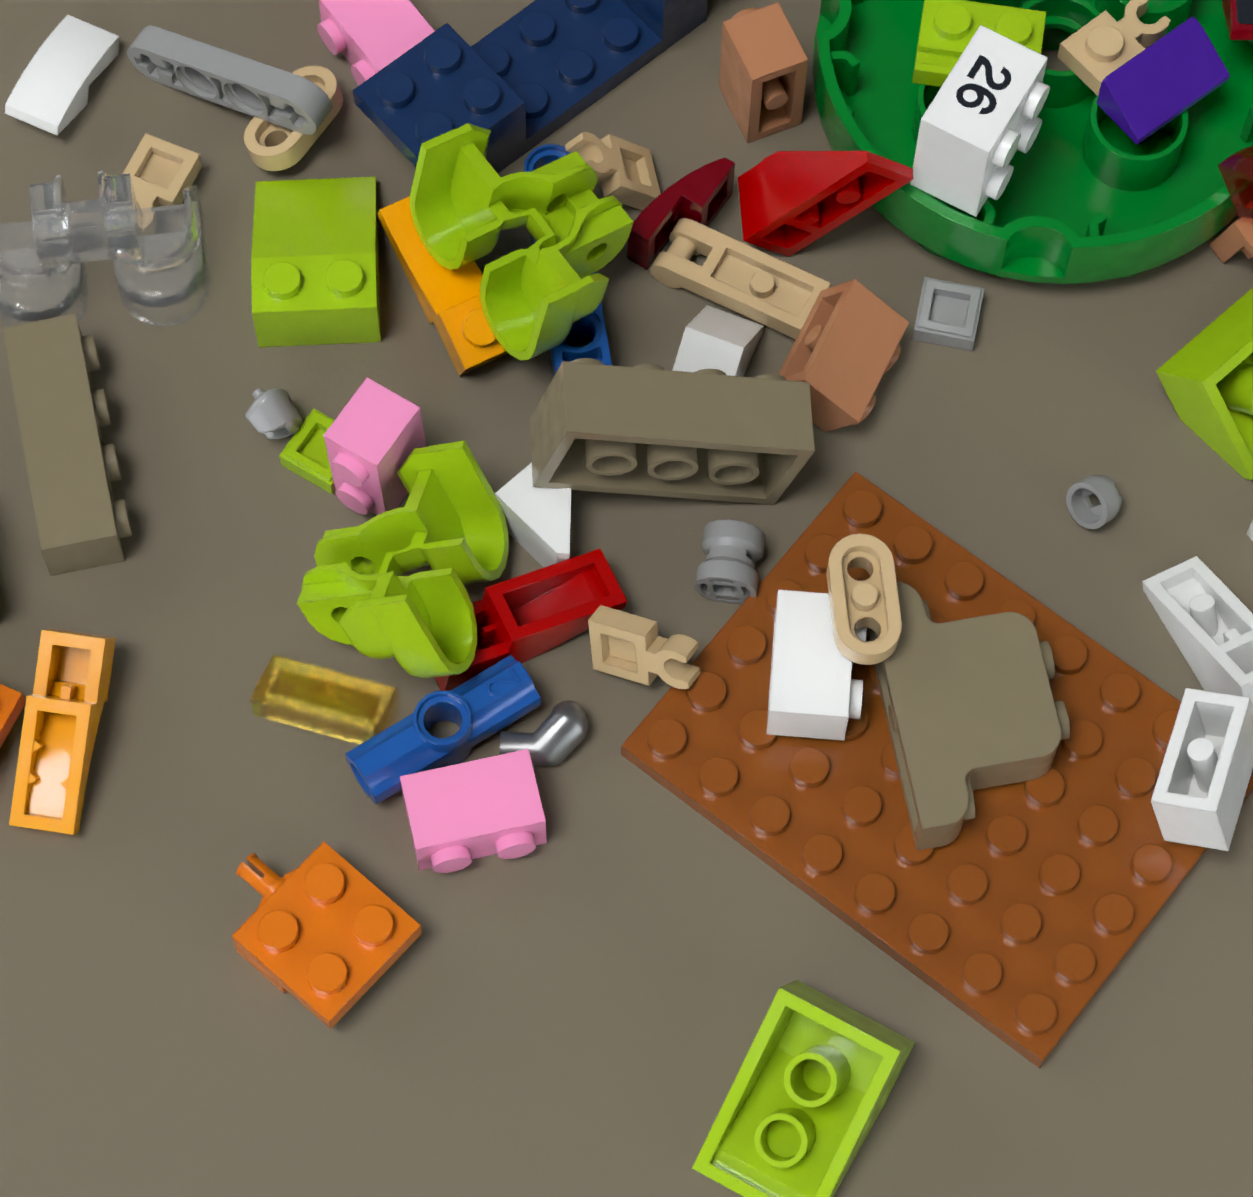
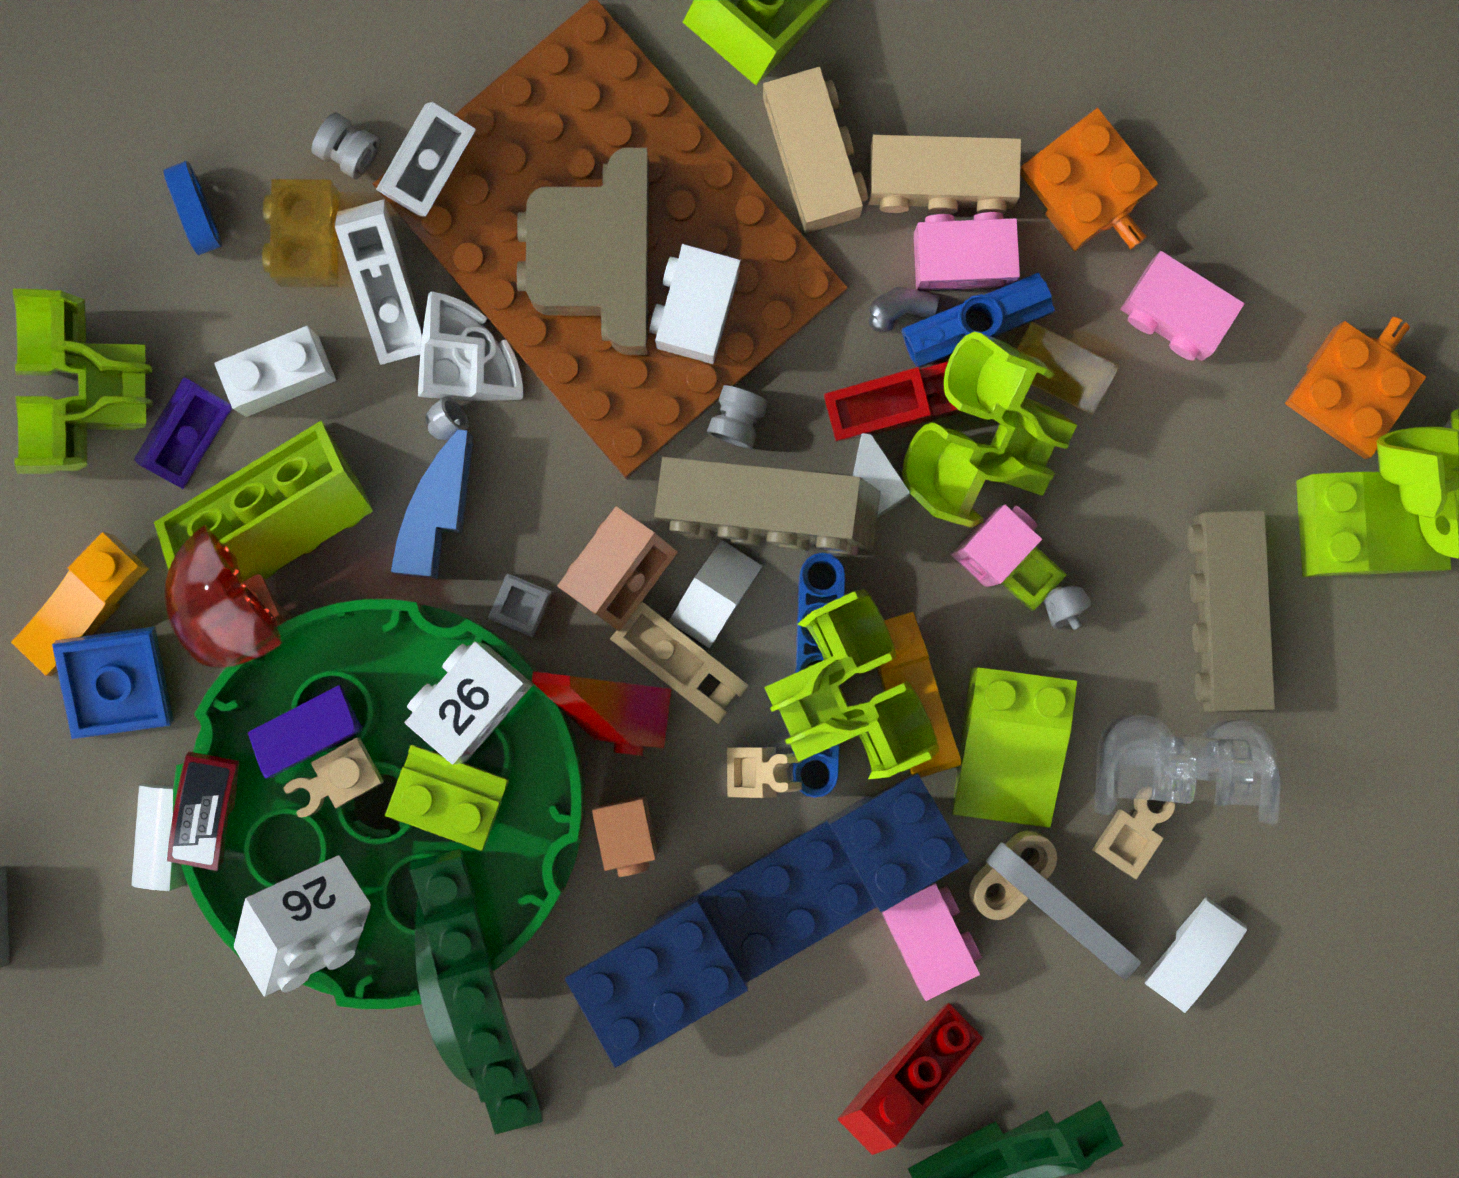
camera: 170 degrees left, 20 degrees up
(61, 729) = (1260, 376): light orange slope -> none
(177, 793) = (1181, 308): none -> bright pink brick
(522, 908) = (944, 173): none -> tan brick
(633, 650) = (825, 357): tan plate -> none
(694, 197) = (703, 735): dark red slope -> none
(701, 908) = (814, 149): none -> tan brick
(866, 602) = (652, 325): tan plate -> none
(1079, 386) = (434, 508): none -> medium blue slope
(1092, 579) = (463, 357): none -> white brick

